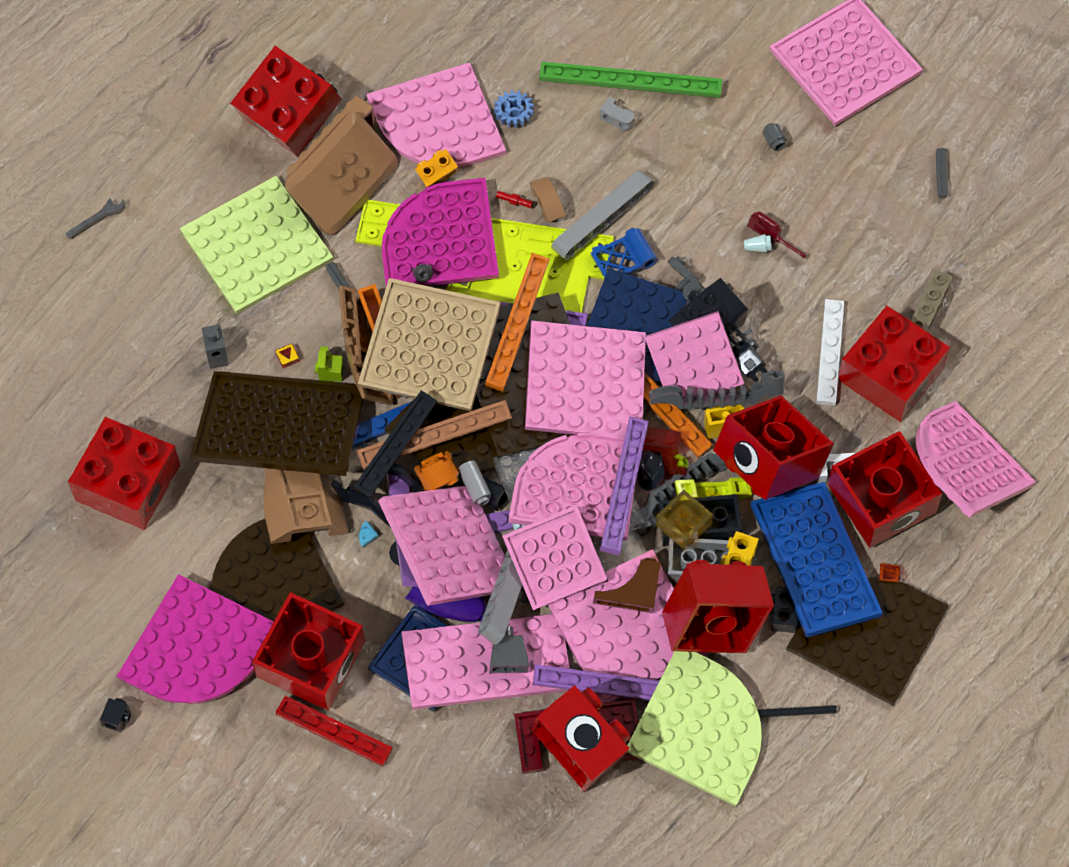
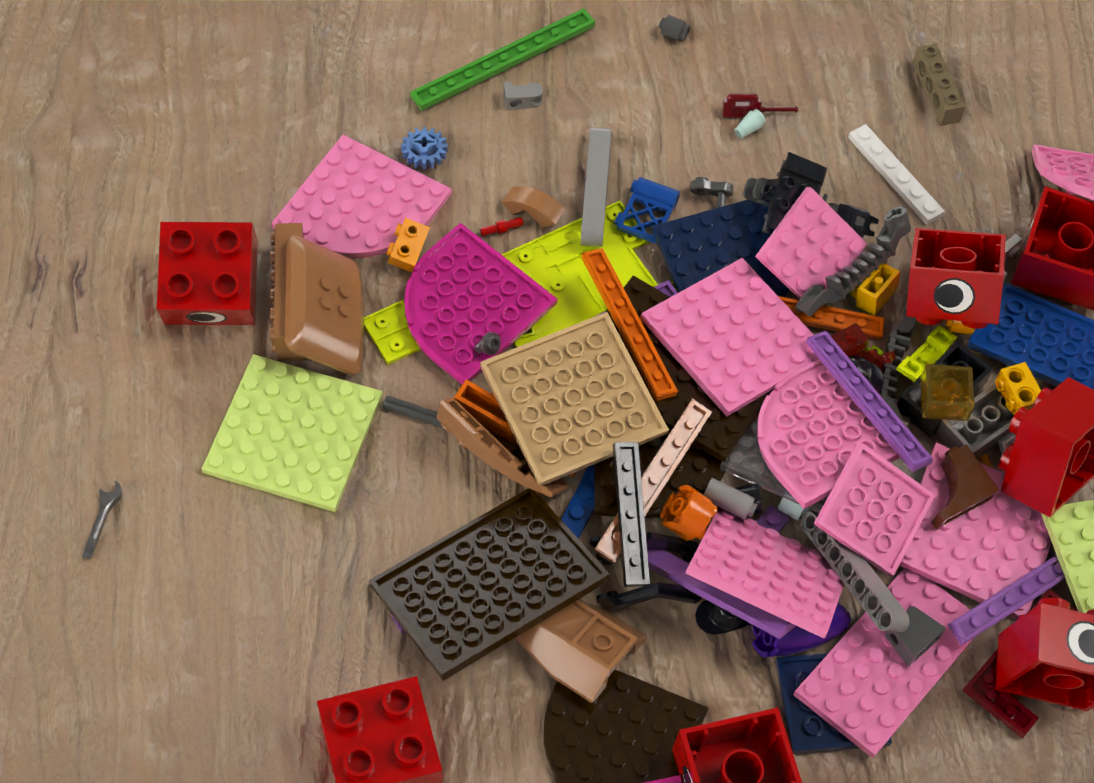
camera: 45 degrees left, 5 degrees down
(215, 342) = (345, 551): dark grey torso -> none
(287, 355) = (425, 514): tile -> none
(329, 366) = (477, 493): lime brick -> none
(367, 534) = (664, 626): medium azure tile -> none
(893, 363) = (965, 144): red brick -> none

